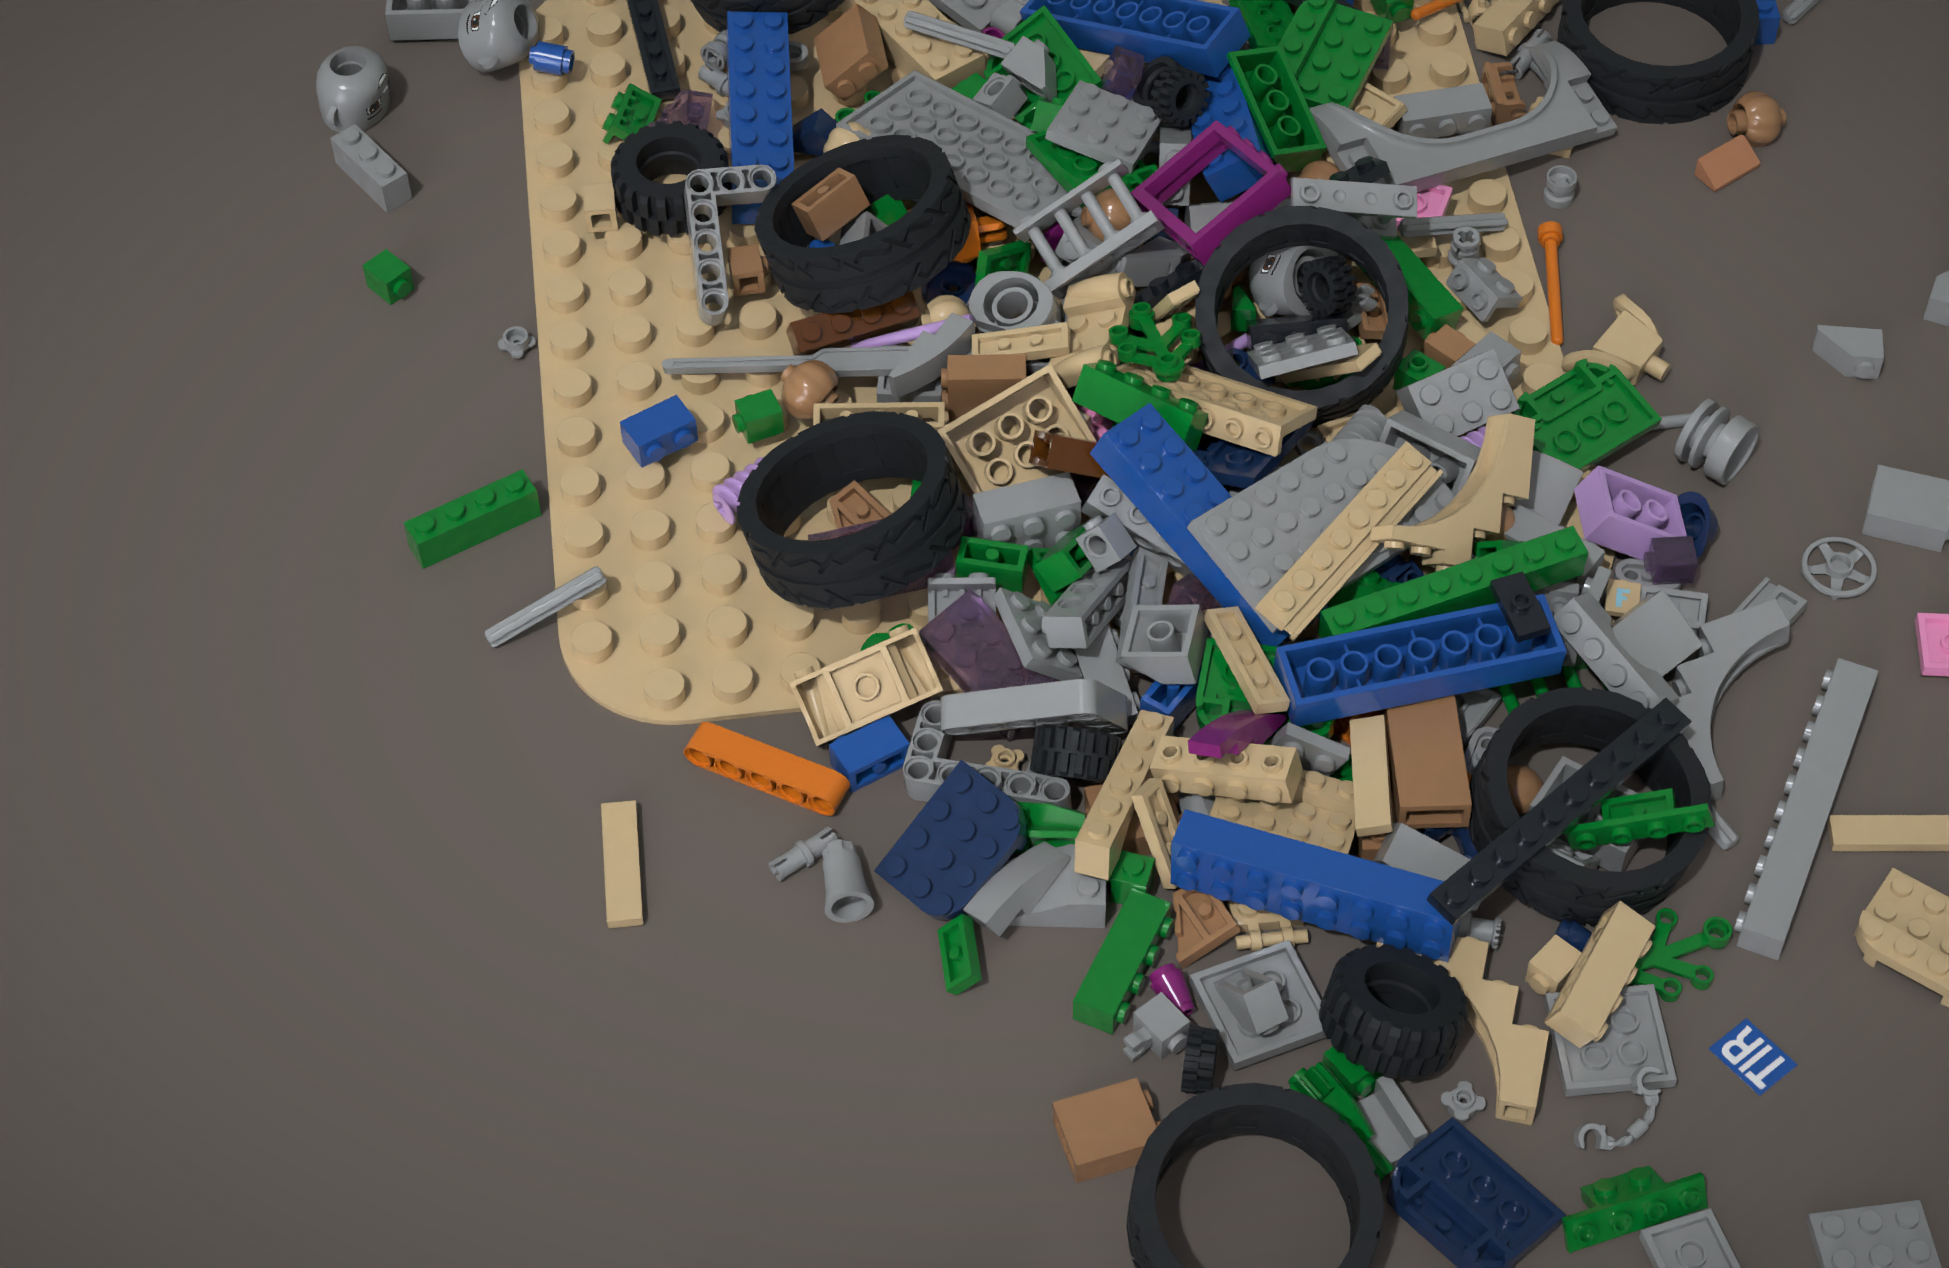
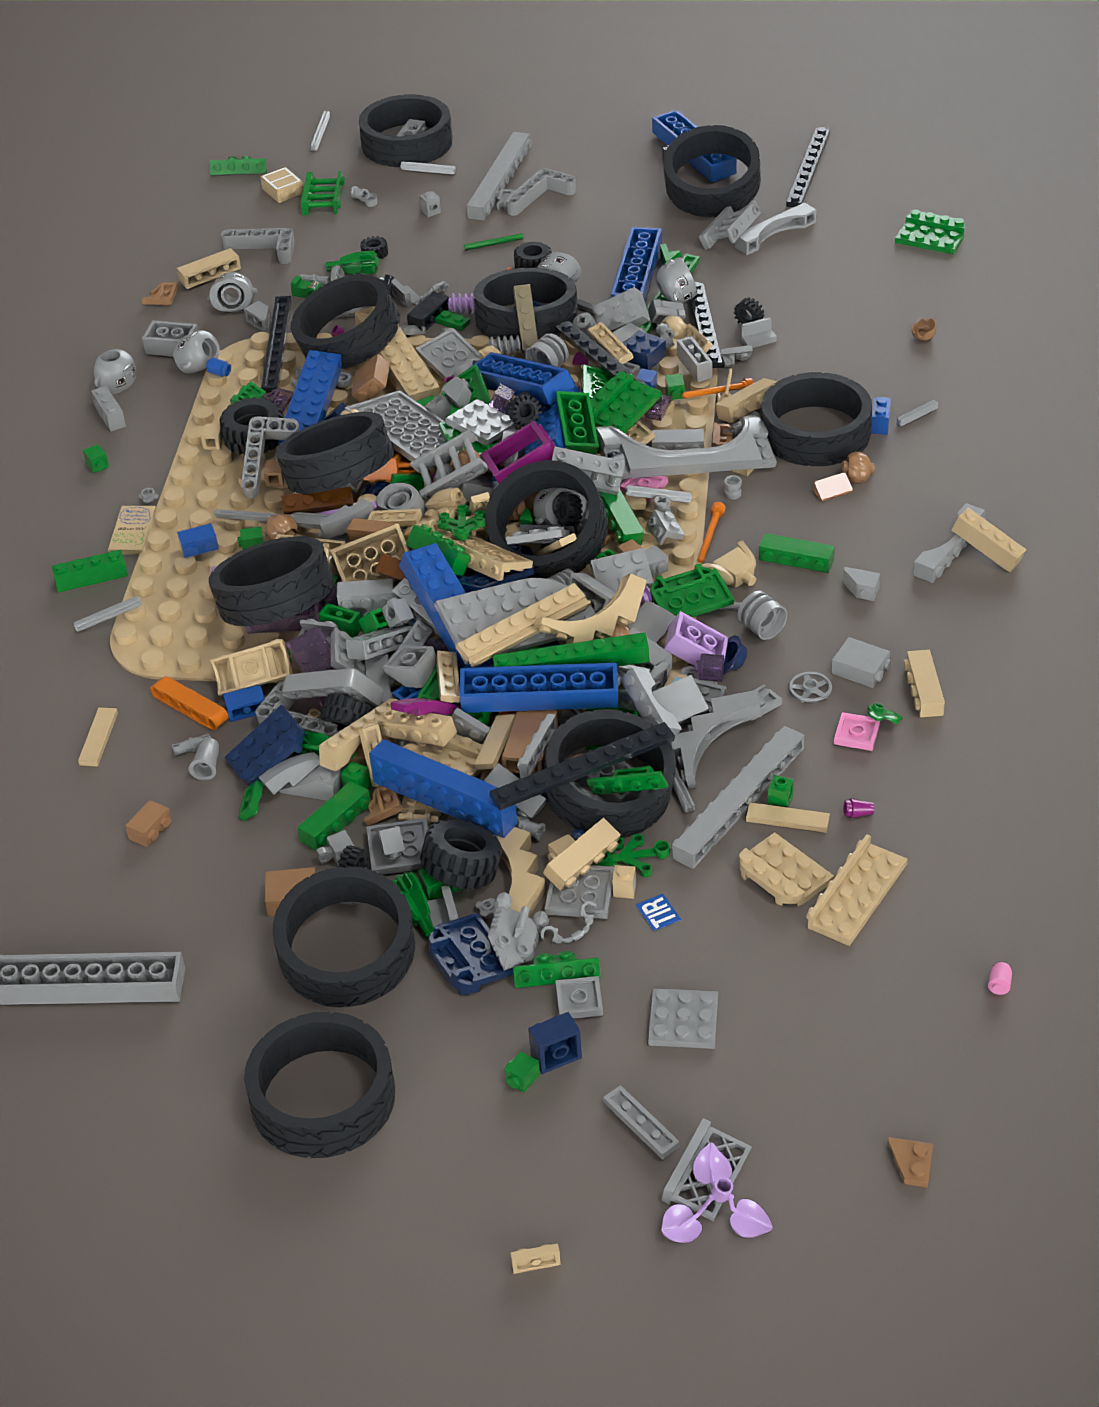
camera: 15 degrees right, 10 degrees down
(513, 418) = (132, 529): none -> tan tile
(792, 1033) = (147, 823): none -> medium nougat piece
(830, 204) = (324, 440): medium nougat brick -> none
(958, 34) = (424, 373): light grey axle -> none
(1173, 985) = (355, 831): magenta cone -> none
(1459, 791) = (538, 745): none -> light grey plate
(1520, 607) = (599, 666): black plate -> none
(1538, 1148) = (514, 933): none -> light grey shield
(1682, 1010) = (624, 881): none -> tan brick
(1719, 304) = (796, 552): none -> green brick
(1876, 788) = (780, 791): none -> green brick

